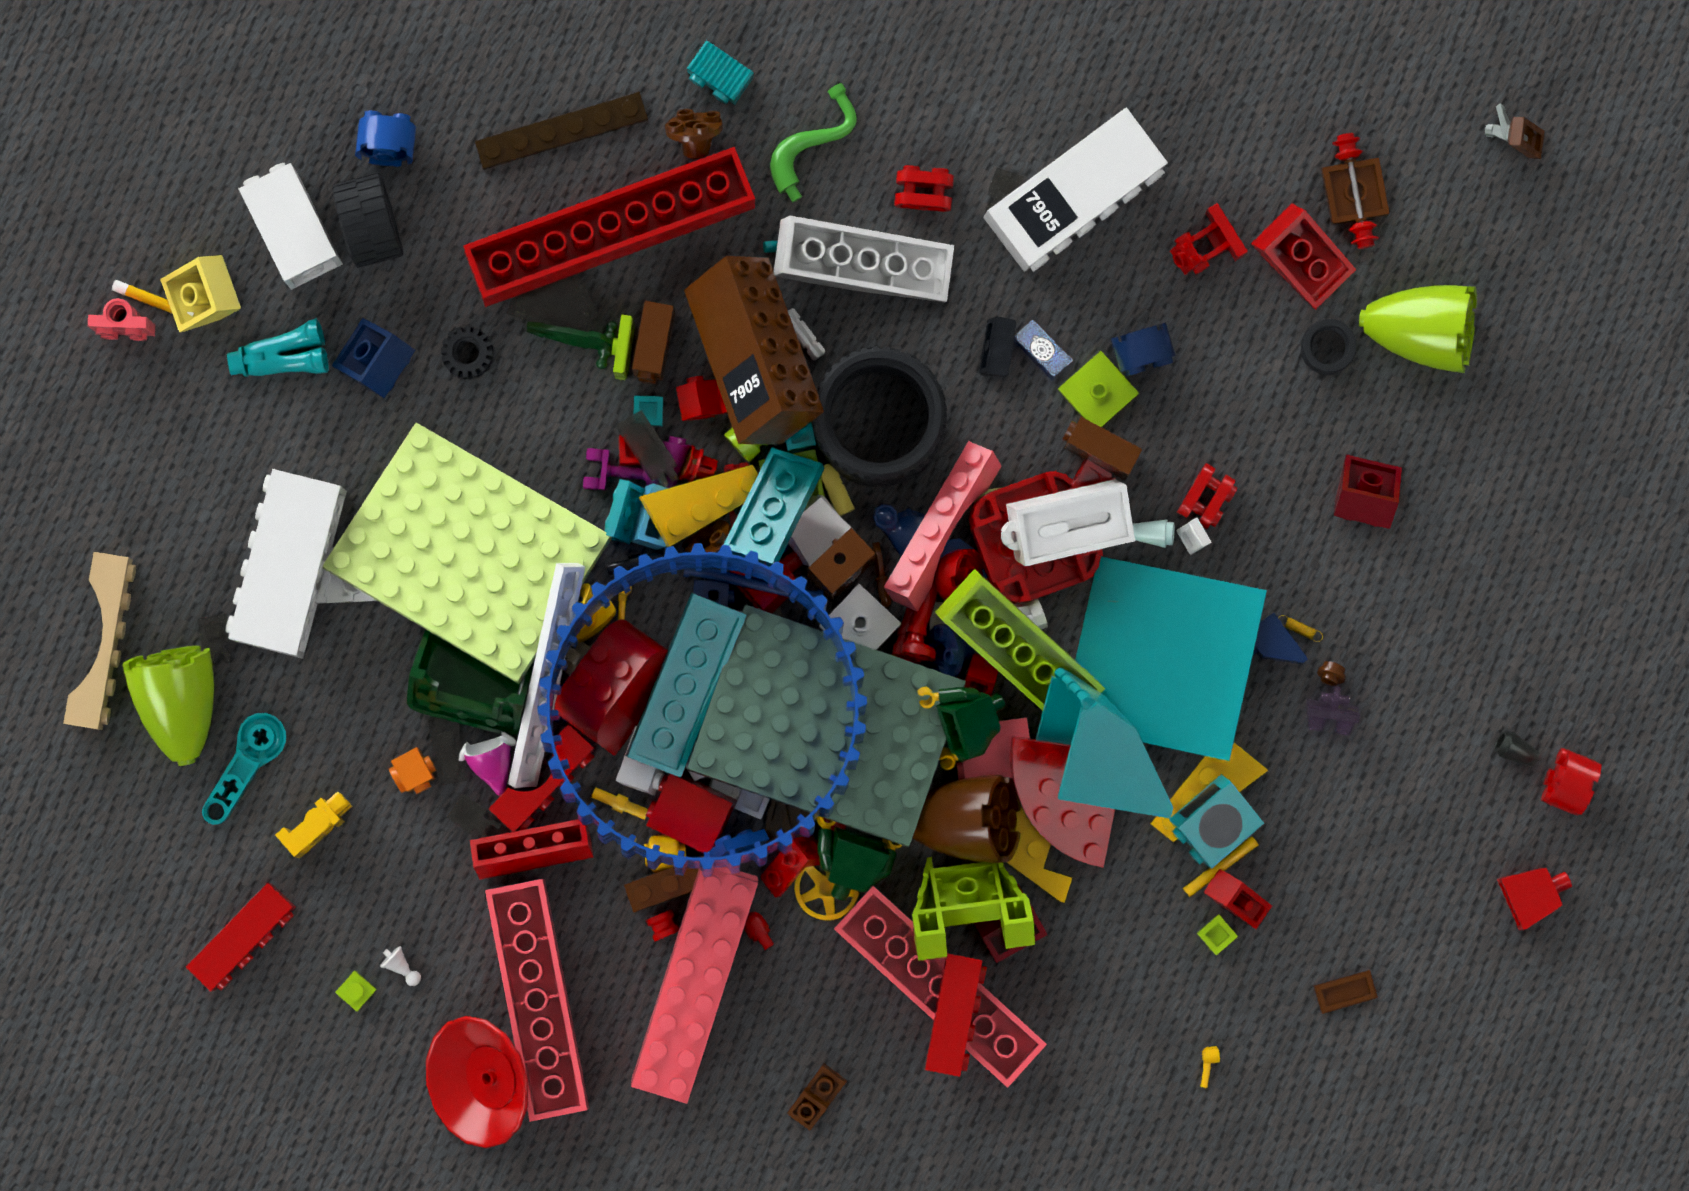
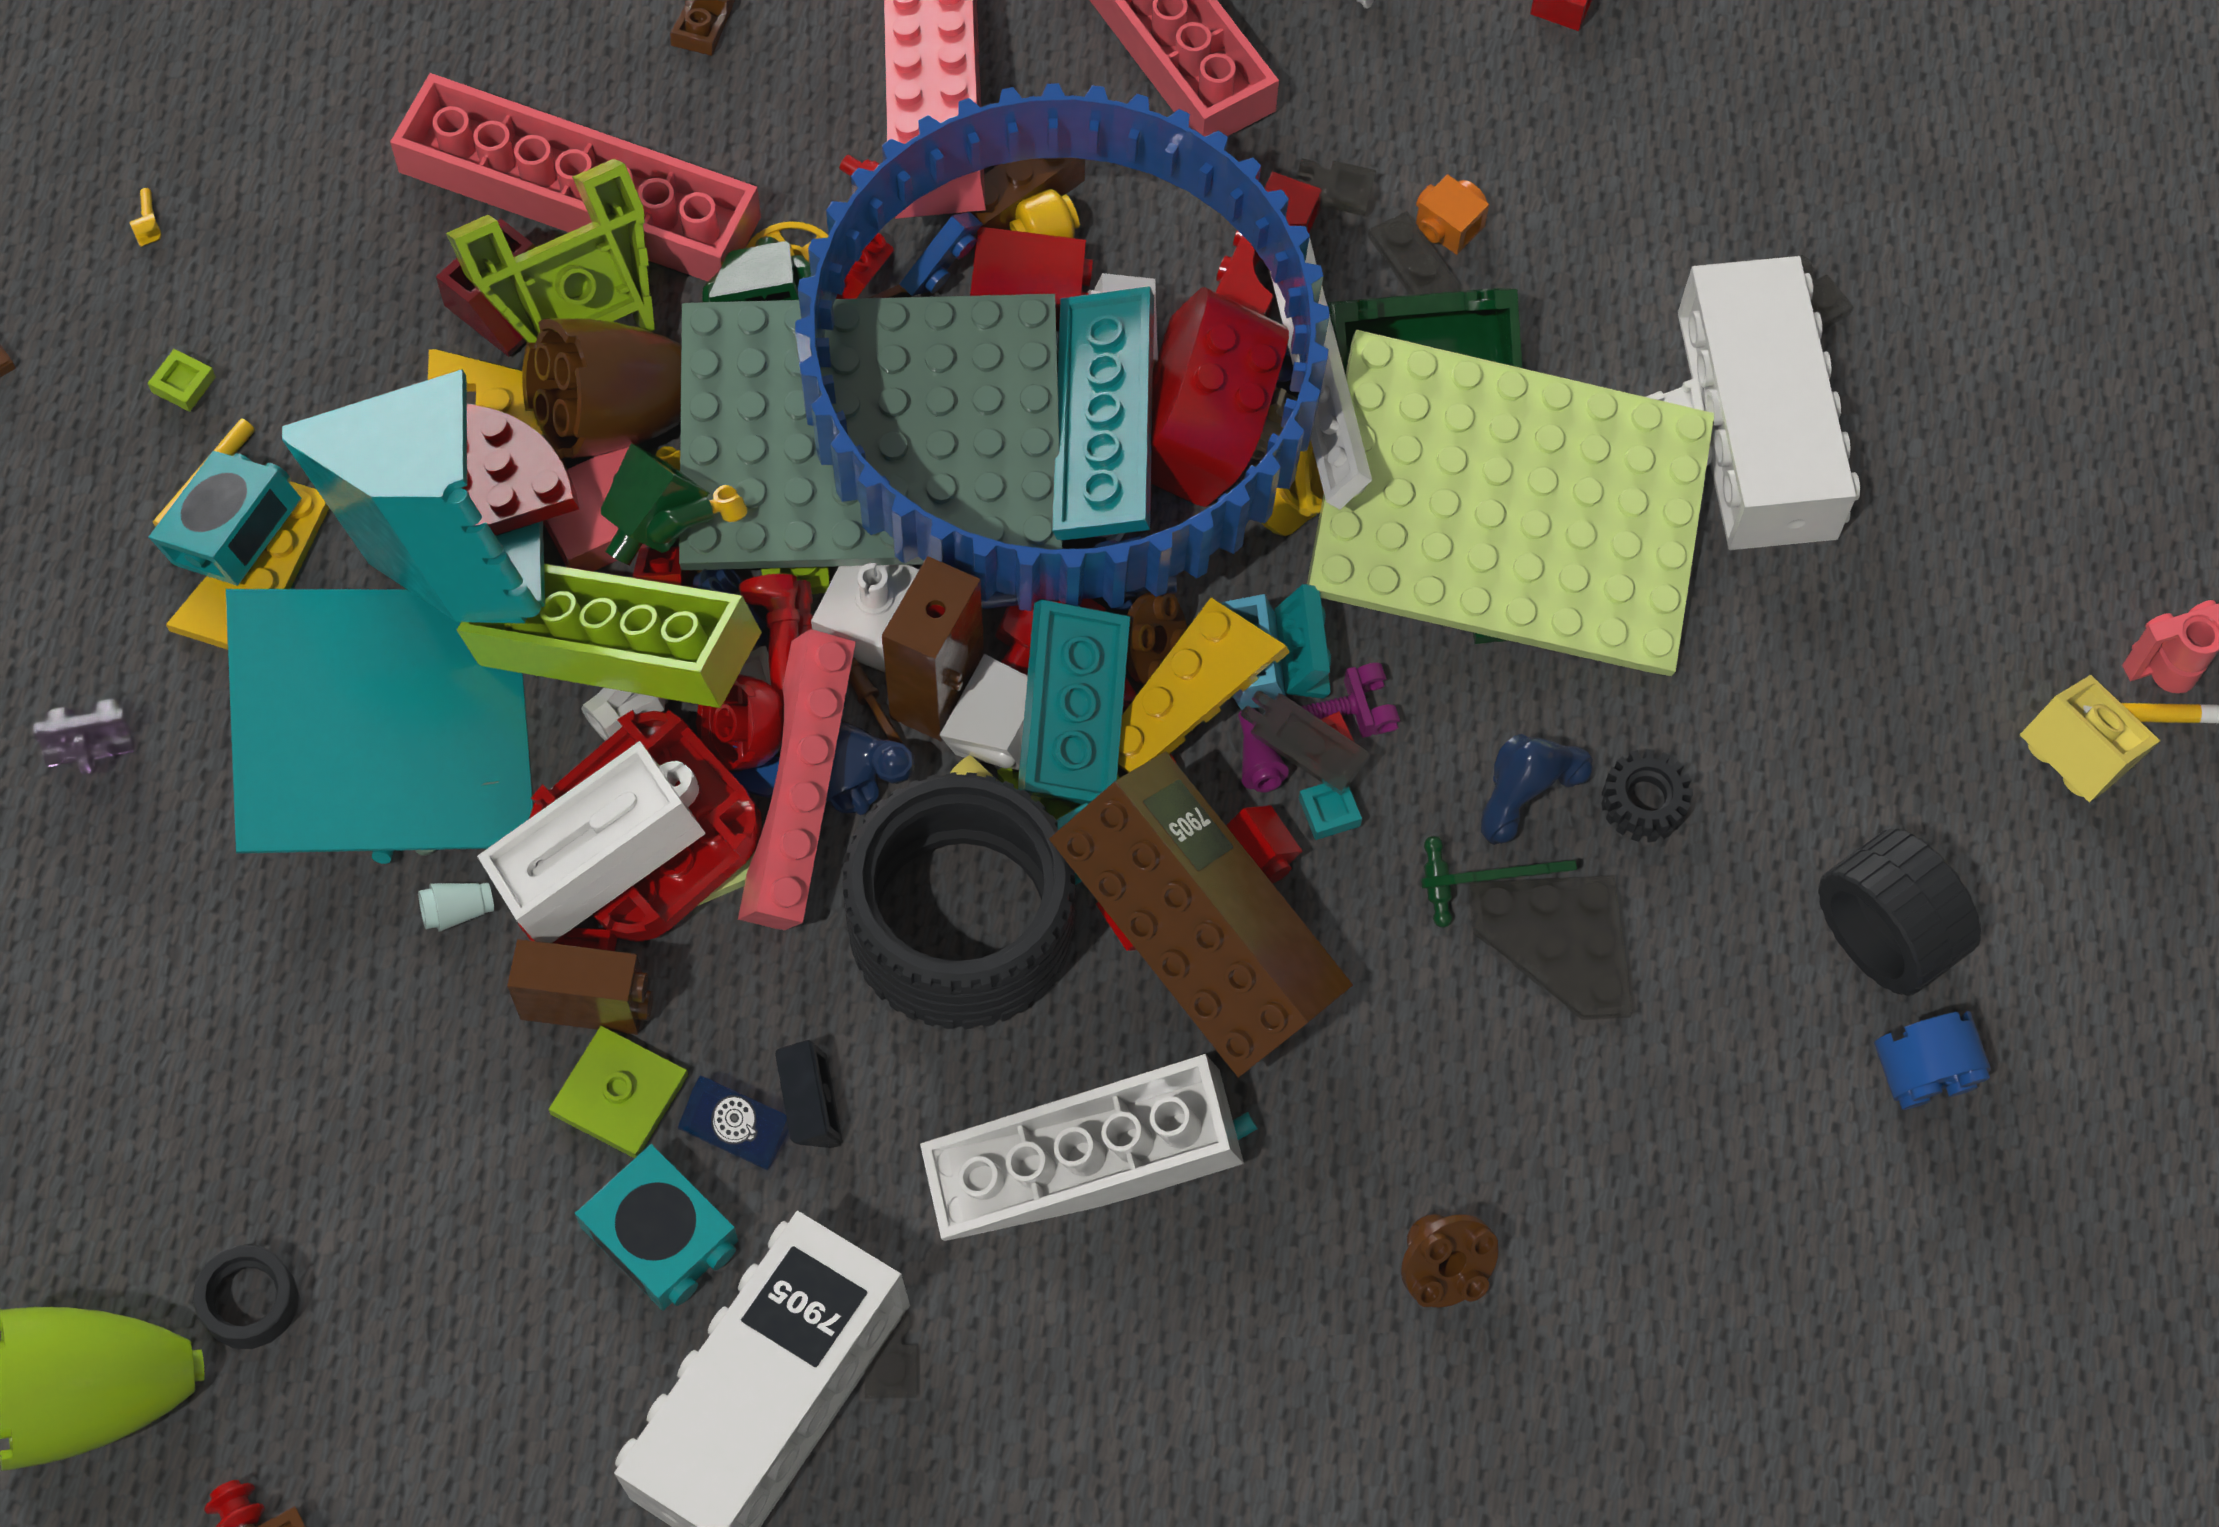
camera: 160 degrees right, 20 degrees down
(89, 701) = (2001, 308): tan arch -> none
(174, 699) = (1838, 188): lime cylinder -> none
(247, 761) = (1688, 154): teal beam -> none
(265, 355) = (1943, 683): teal piece -> none
(290, 225) = (2024, 871): white brick -> none
(316, 825) = (1565, 74): yellow hips -> none
(374, 357) = (1784, 735): dark blue slope -> none
(490, 760) = (1351, 258): dark pink hat -> none
(531, 849) = (1272, 144): red brick -> none
(532, 382) = (1522, 772): none -> dark blue head
(561, 130) = (1660, 1191): dark brown plate -> none
(609, 226) = (1512, 1047): red brick -> none
(619, 803) = (1139, 268): yellow bar -> none
(622, 347) = (1409, 873): lime plate -> none
(622, 598) = (1255, 542): yellow hand -> none
(633, 561) = (1266, 583): black bar -> none
(653, 342) = (1367, 898): reddish brown brick -> none
(697, 465) = (1217, 750): red piece -> none
(720, 73) = (1445, 1374): teal brick -> none
(786, 151) = (1279, 1291): bright green animal -> none
(805, 336) = (1134, 1011): white axle -> none
(937, 179) = (1009, 1331): red brick -> none
(953, 1015) = (537, 122): red brick -> none
(1101, 302) = (658, 1228): none -> teal brick
(1143, 348) = (559, 1168): dark blue brick -> none
(1193, 536) = (387, 917): white tile -> none
(1220, 235) = (532, 1357): red tile -> none
(1223, 492) = (368, 965): red brick -> none
(1237, 898) = (165, 432): red slope -> none
(1276, 643) = (199, 802): dark blue slope -> none
(1300, 628) = (171, 847): yellow piece -> none
(1303, 255) = (334, 1433): red slope -> none
(1331, 673) = (100, 791): reddish brown plate -> none
(1368, 492) = (112, 1086): dark red slope -> none

